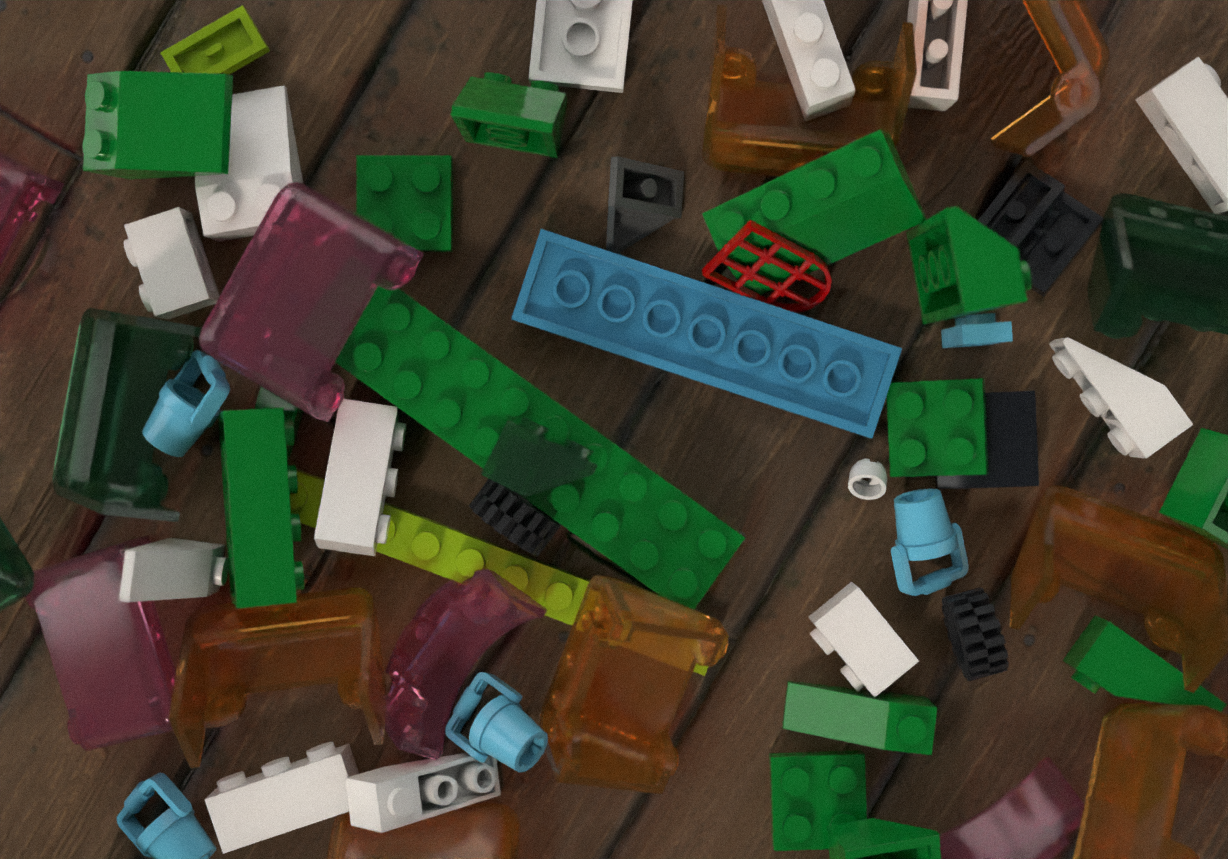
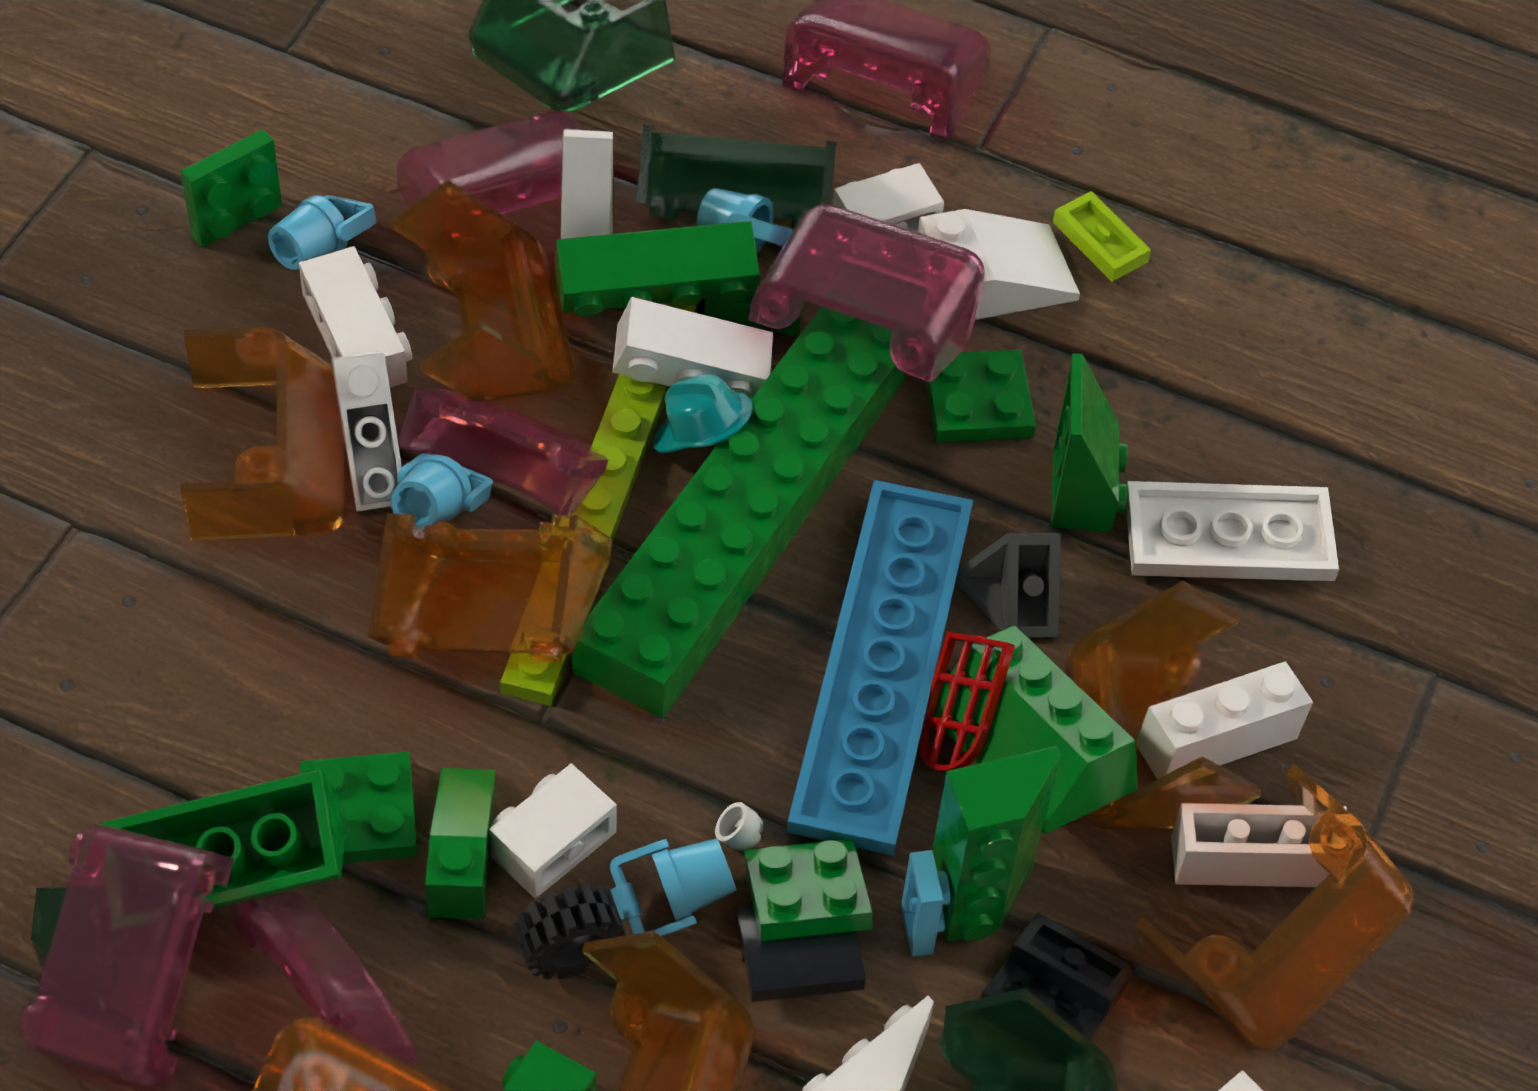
camera: 80 degrees right, 35 degrees down
(157, 124) = (1020, 175): green slope -> none
(440, 474) = (701, 414): none -> teal piece
(514, 517) = (661, 480): black tyre -> none
(533, 463) = (729, 467): clear green slope -> none

